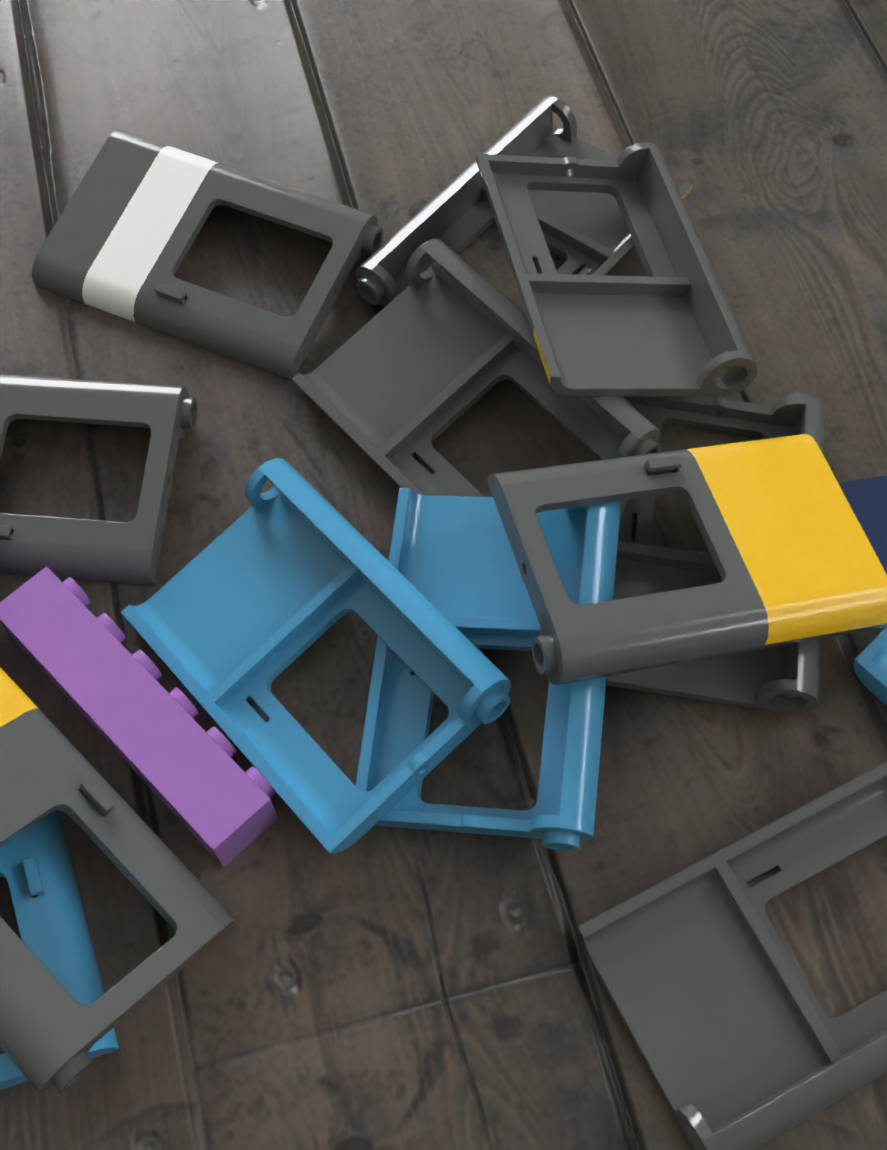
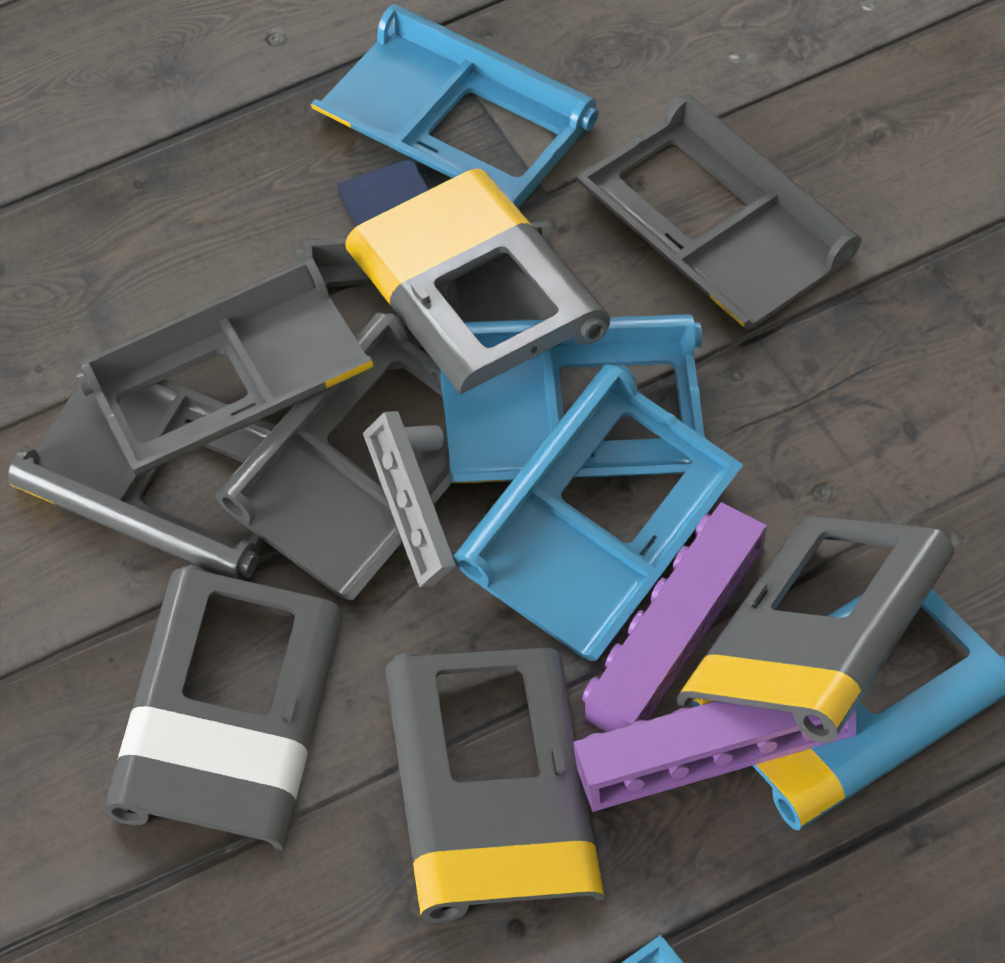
camera: 105 degrees left, 5 degrees down
(461, 418) = (393, 455): none -> light grey piece

